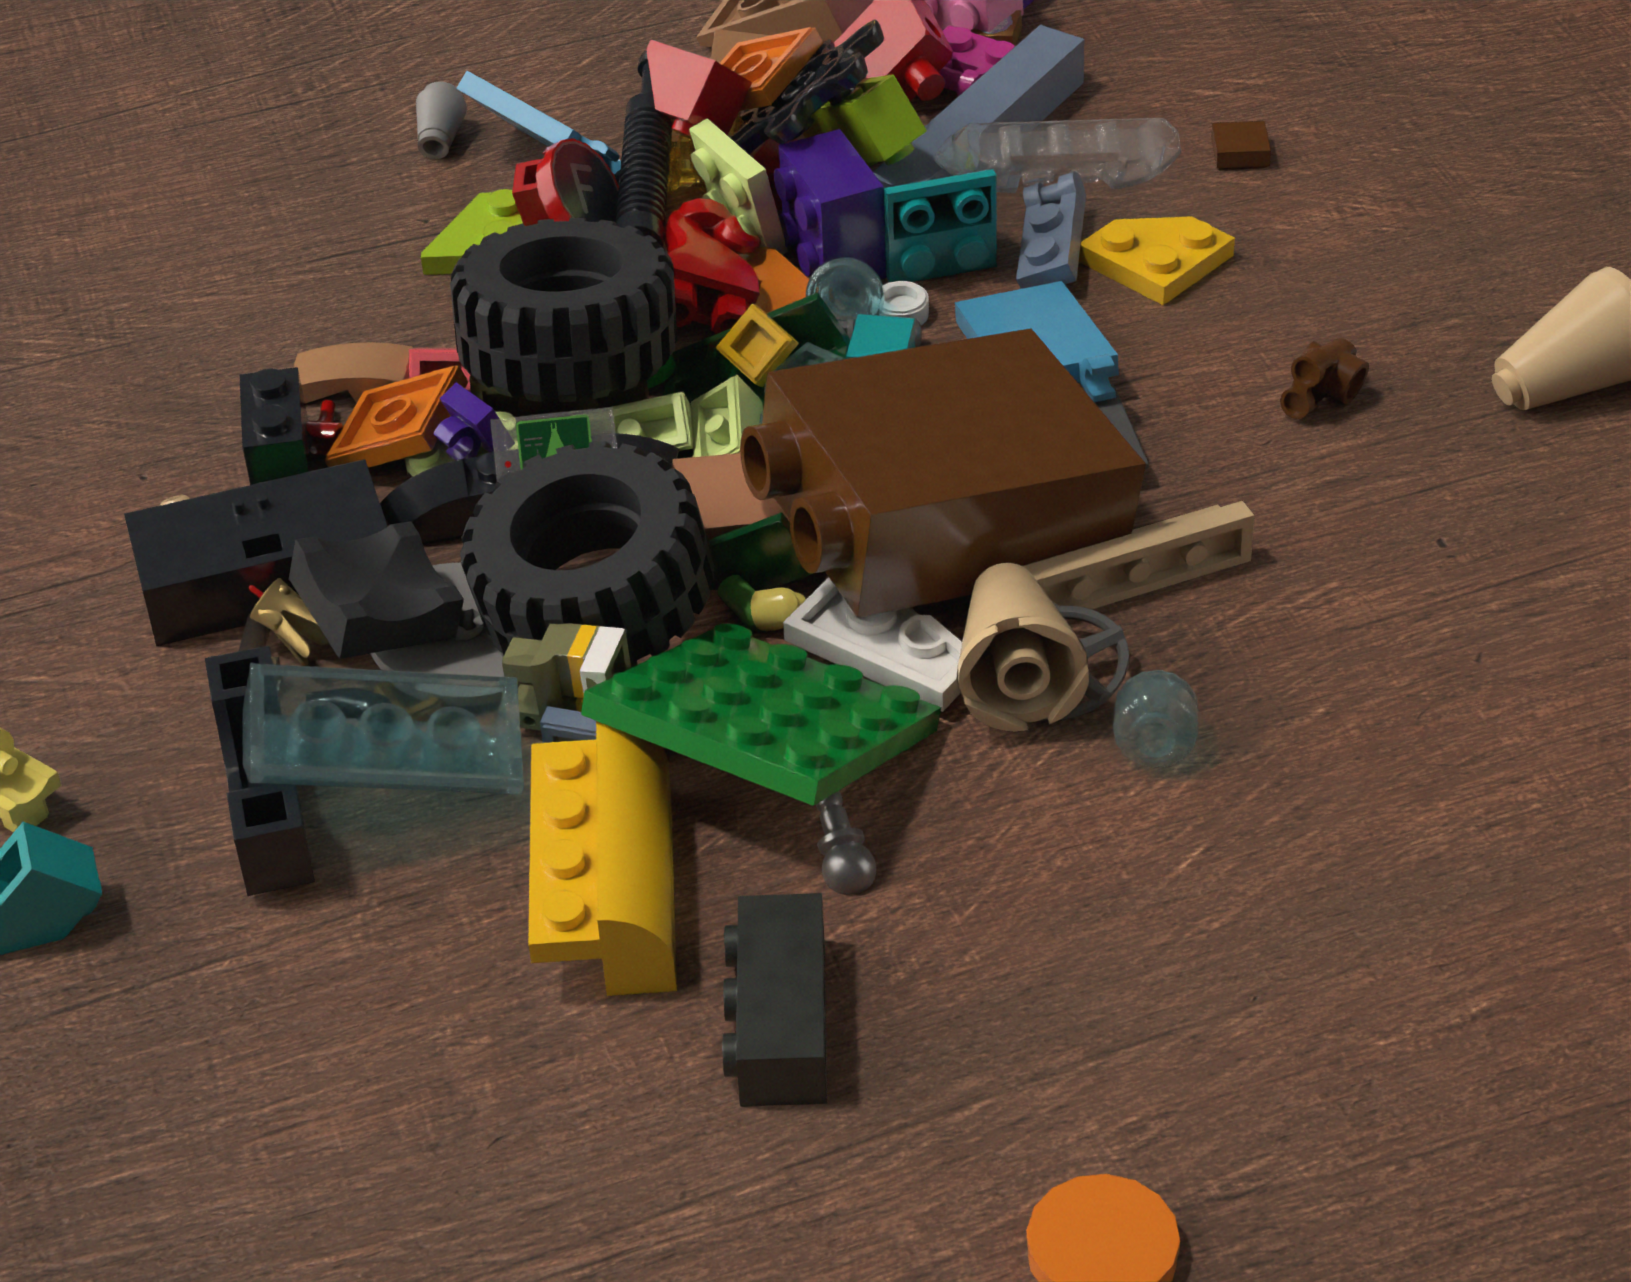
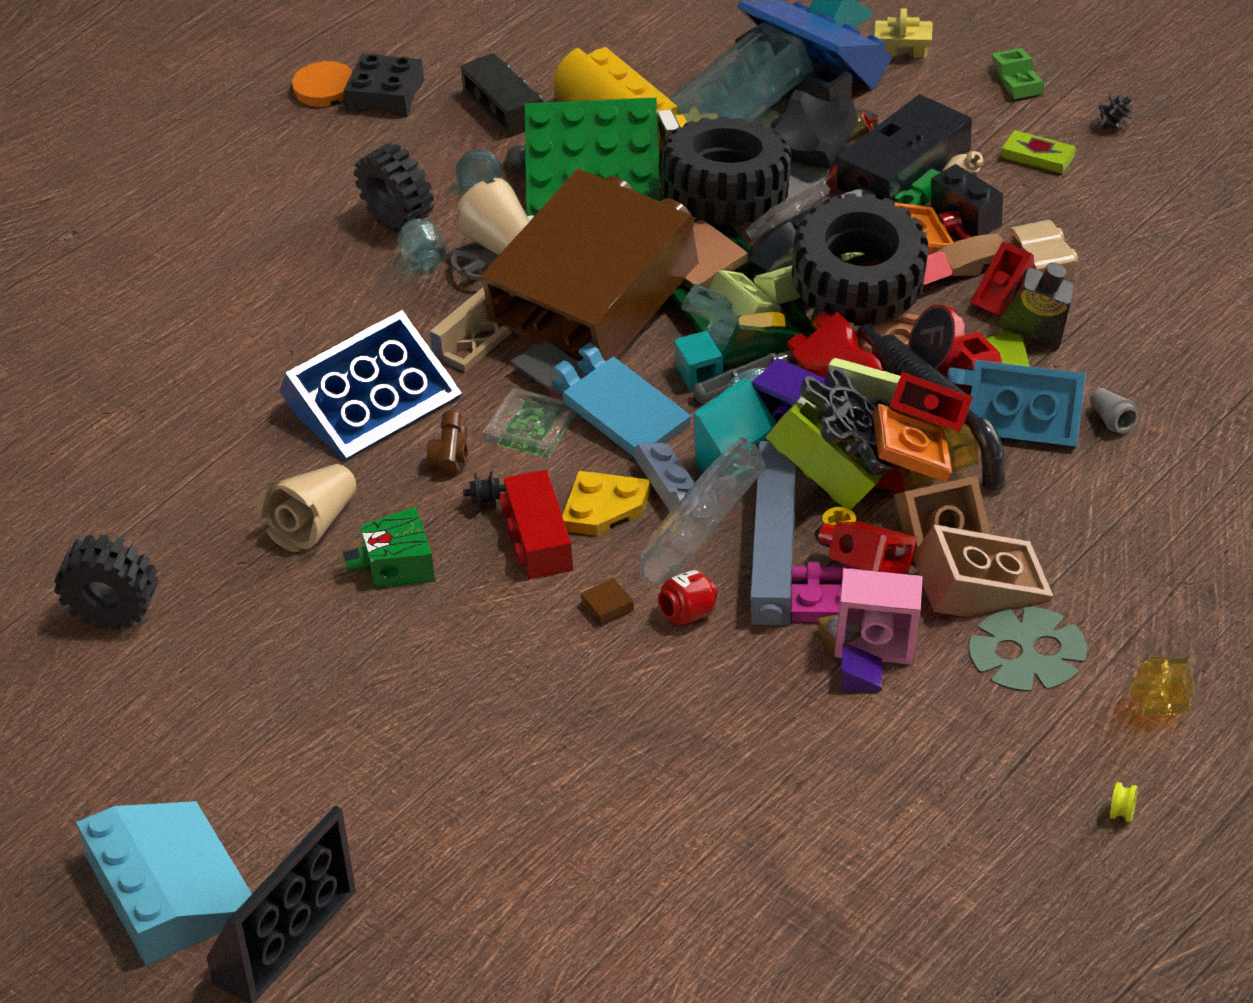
camera: 150 degrees right, 0 degrees up
(65, 503) = (1038, 152): none -> lime tile
(170, 771) = (823, 38): none -> blue slope
(271, 325) = (1046, 245): none -> tan brick
(373, 290) = (1001, 276): none -> red slope
(389, 214) = (1038, 305): none -> black torso
(949, 834) = (476, 167): none -> clear light blue brick
(985, 1151) = (384, 83): none -> black brick
(1148, 89) = (687, 597): none -> red head
(1153, 787) = (393, 186): none -> black tyre
(1182, 392) = (529, 423): none -> clear tile
(1271, 237) = (536, 524): none -> red brick
(1312, 301) = (484, 490): none -> black wheel
(1399, 511) = (368, 386): none -> blue slope
(1488, 269) = (393, 550): none -> green torso

